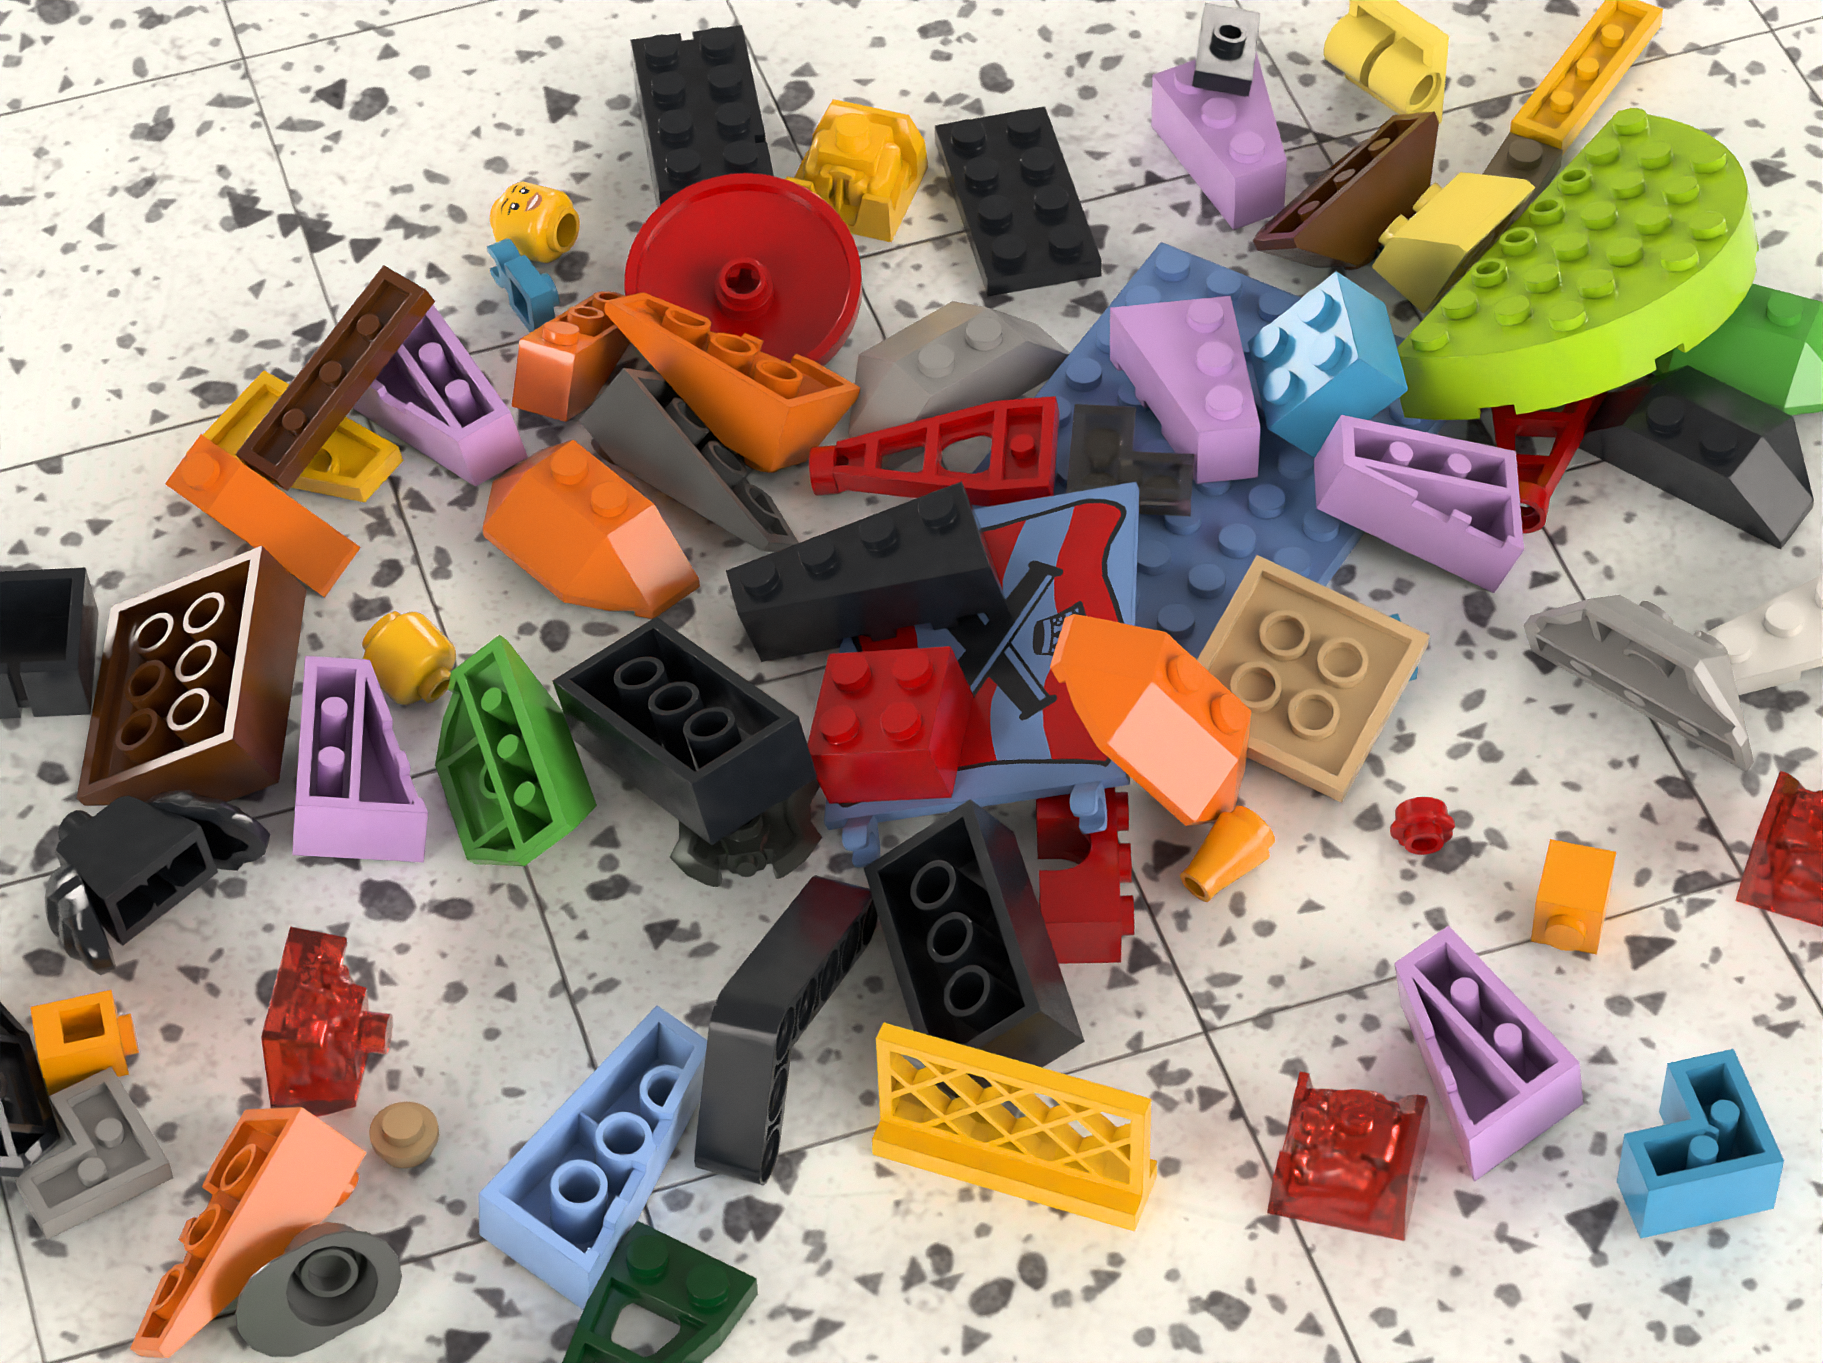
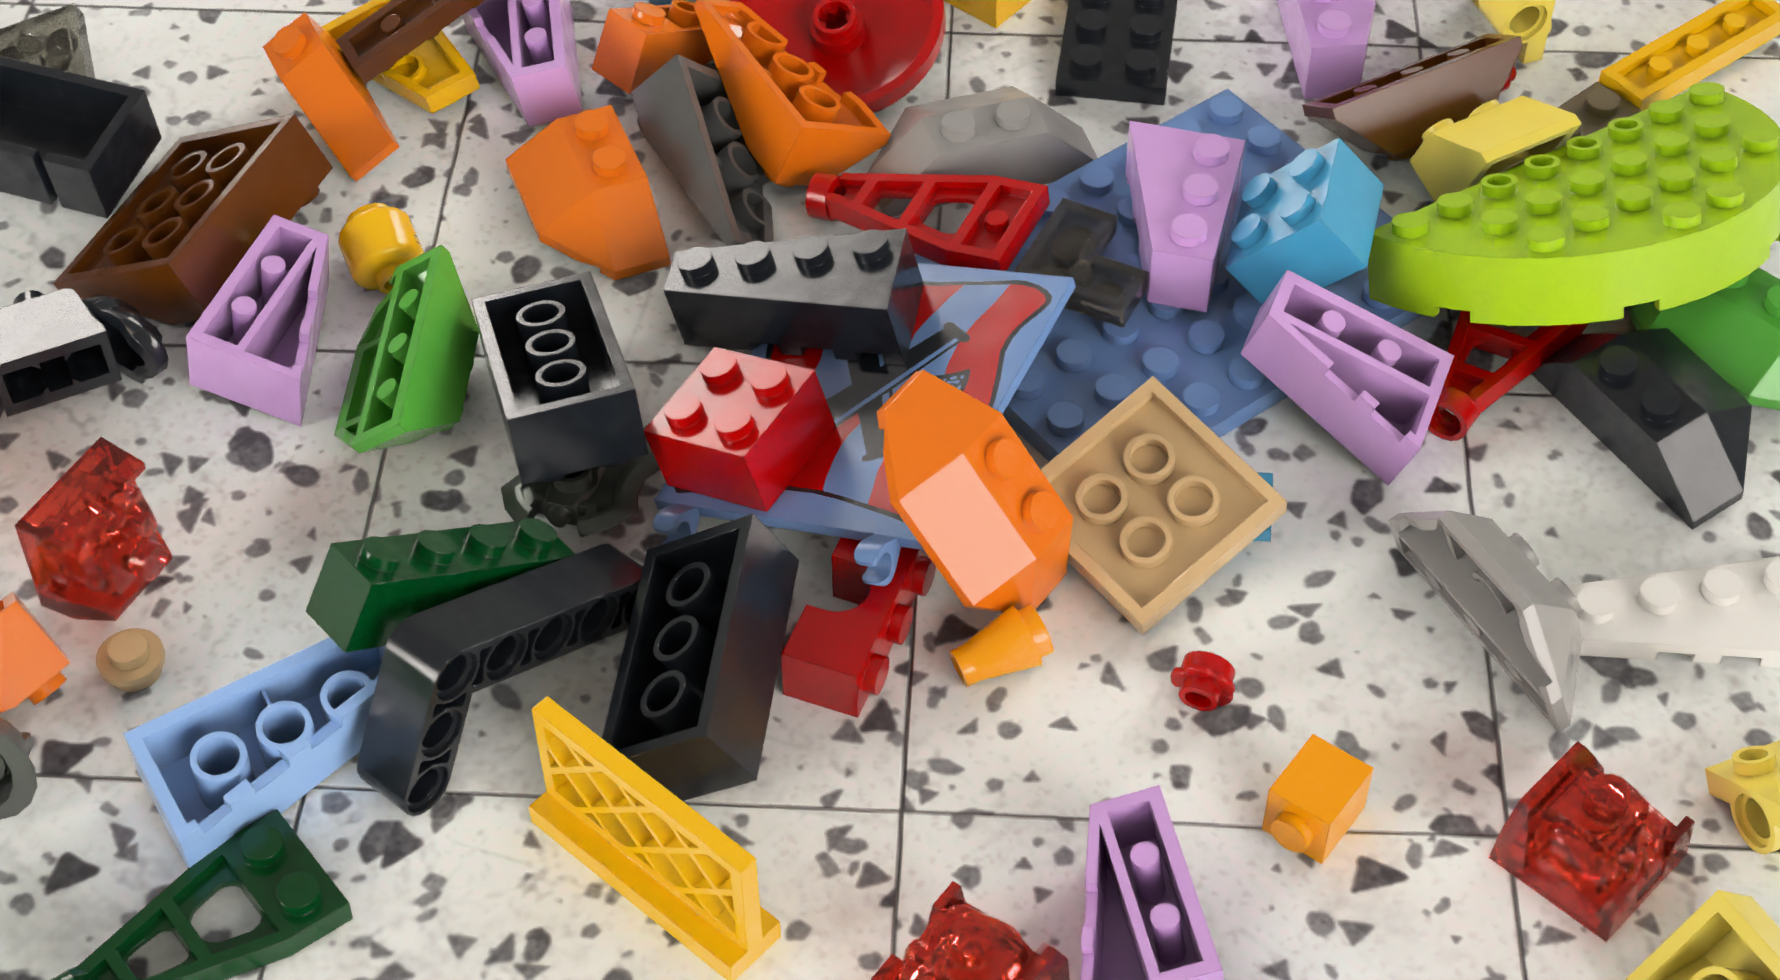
camera: 20 degrees right, 0 degrees up
(677, 968) = (383, 580): none -> dark green wedge

